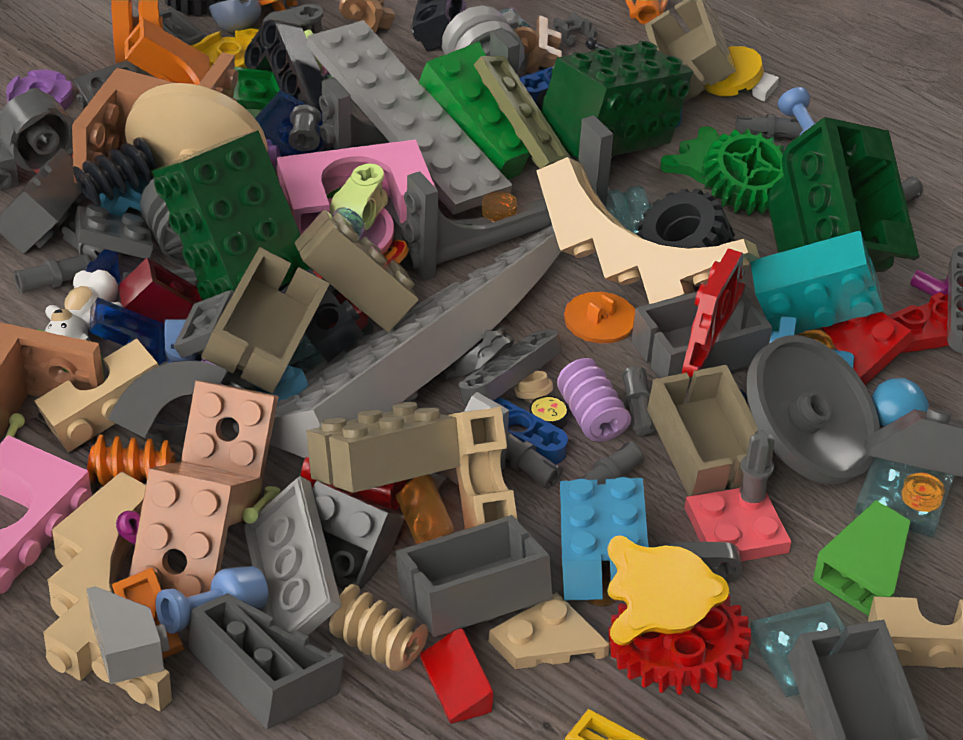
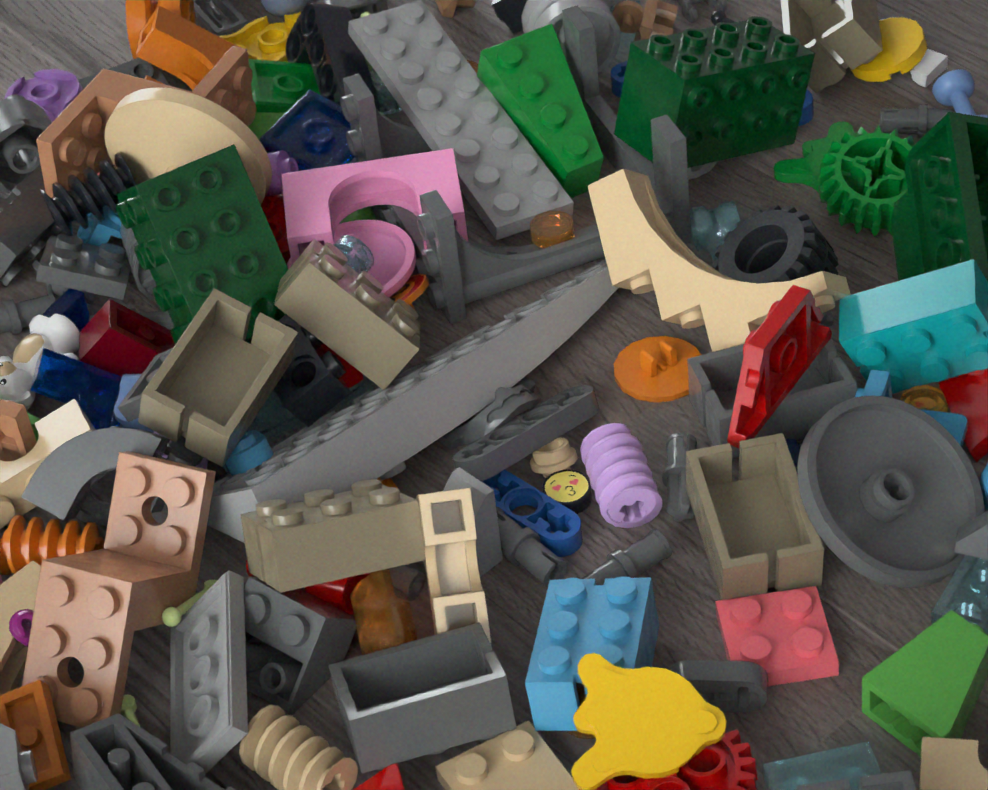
camera: 15 degrees right, 0 degrees up
(241, 582) = (142, 702): medium blue piece -> none
(304, 133) = (327, 142): dark grey bush -> none
(362, 193) = (378, 219): yellowish green piece -> none
(520, 110) = (590, 108): olive plate -> none
(757, 467) = (797, 566): dark grey axle -> none

